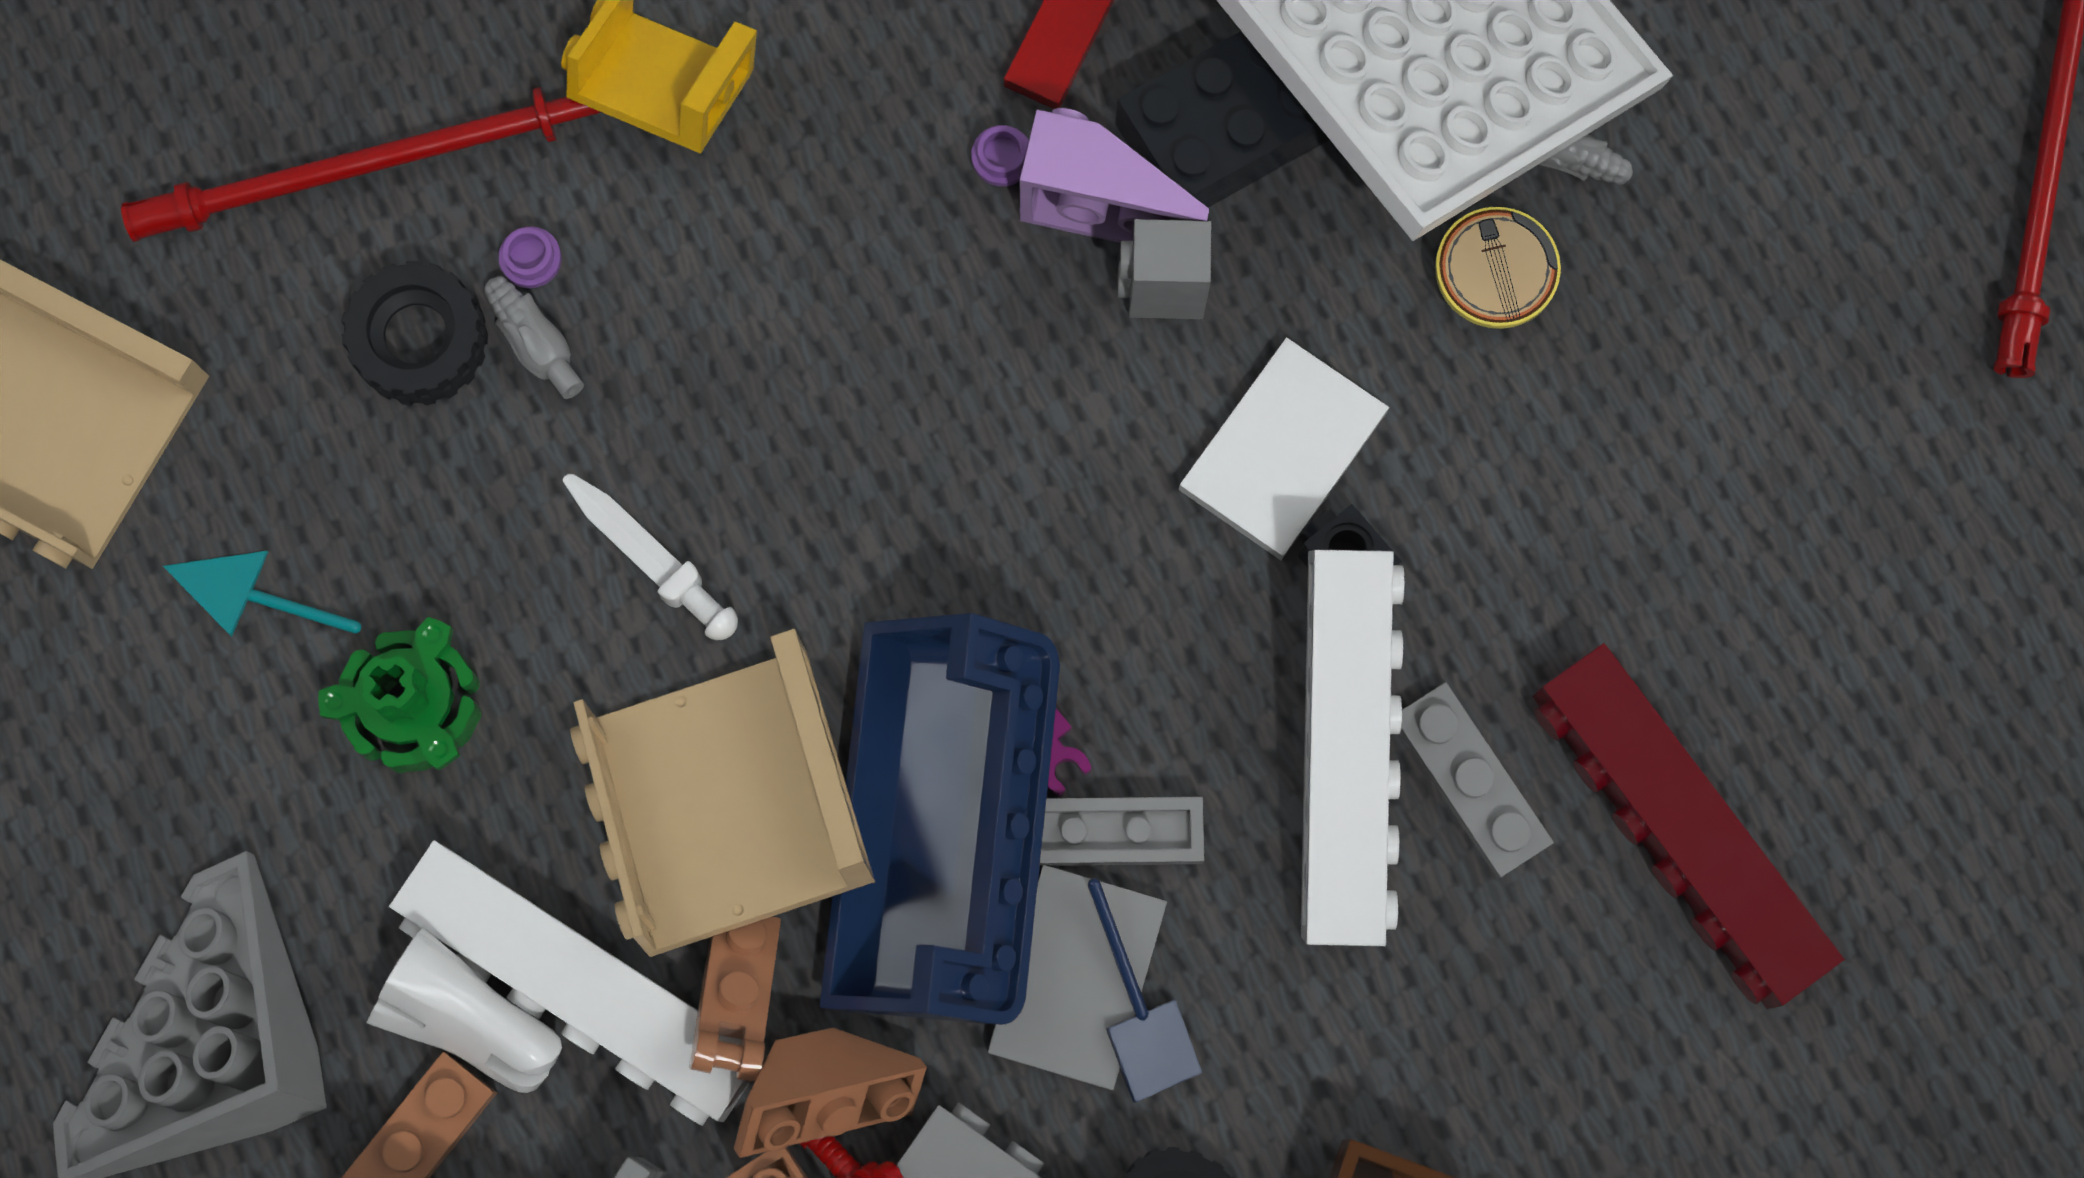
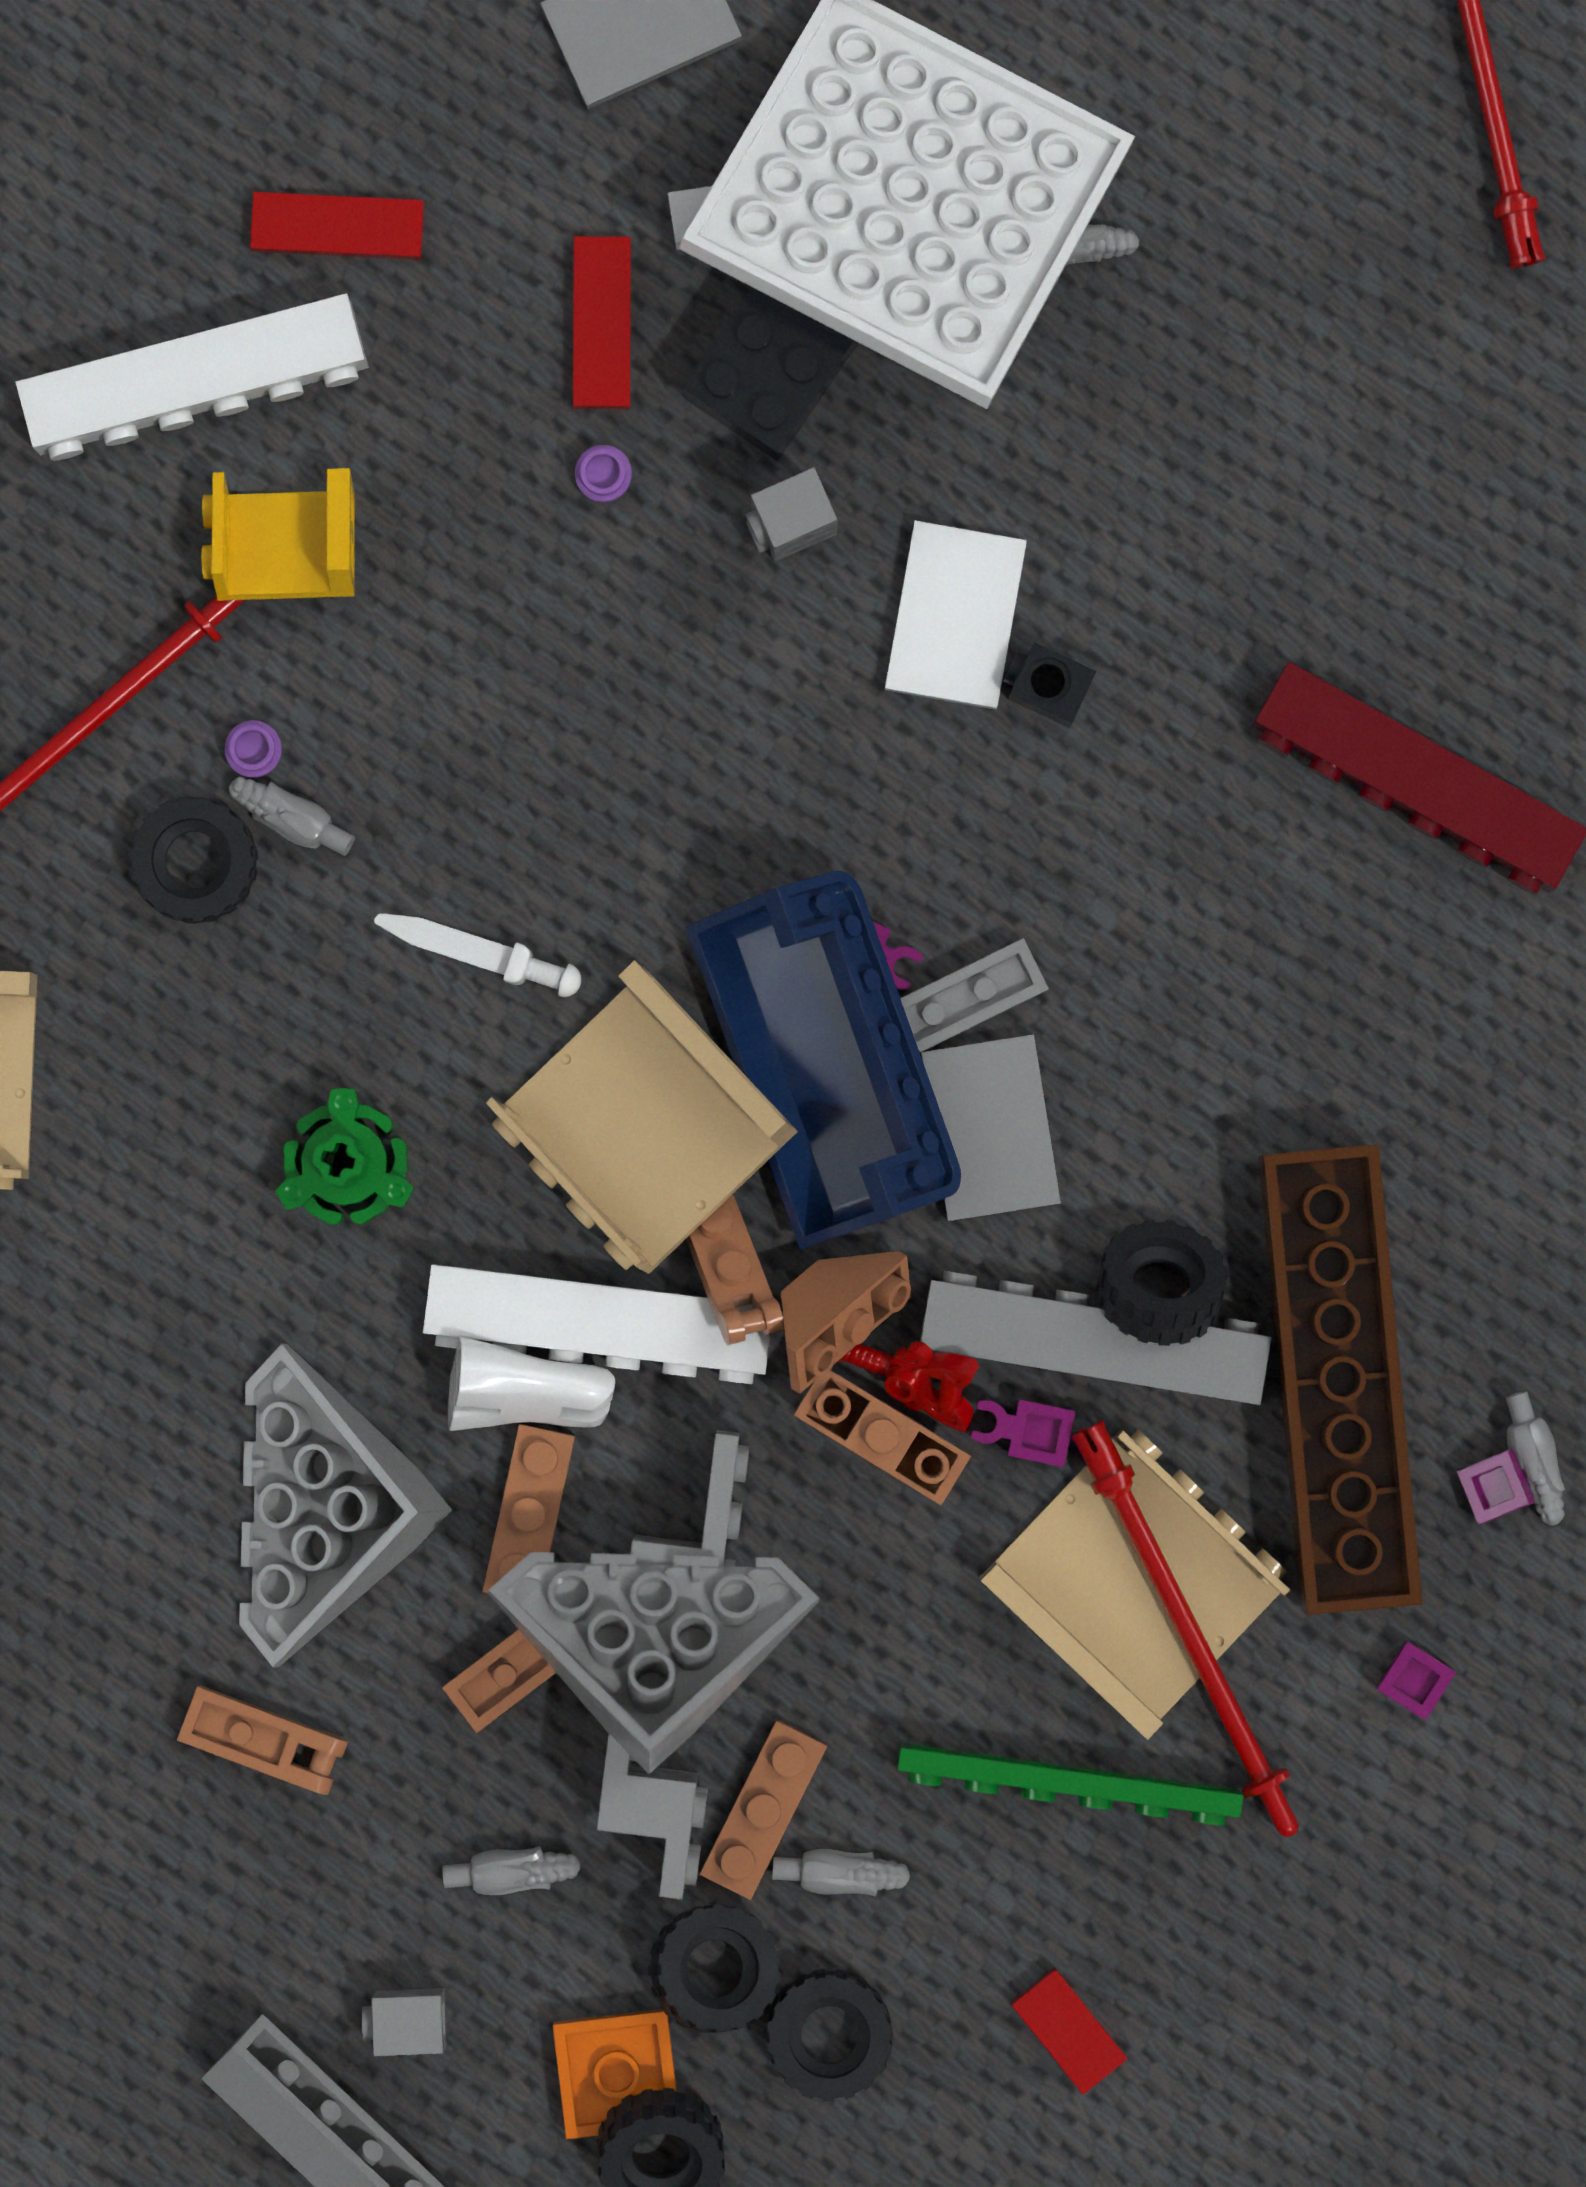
camera: 20 degrees left, 10 degrees up
(228, 583) = (146, 1139): teal piece -> none
(1093, 182) = (698, 469): lavender slope -> none
(1153, 1043) = (1076, 1151): piece -> none
(1349, 747) = (1121, 843): white brick -> none
(1472, 781) = (1232, 820): light grey plate -> none
(1497, 267) = (1063, 378): piece -> none

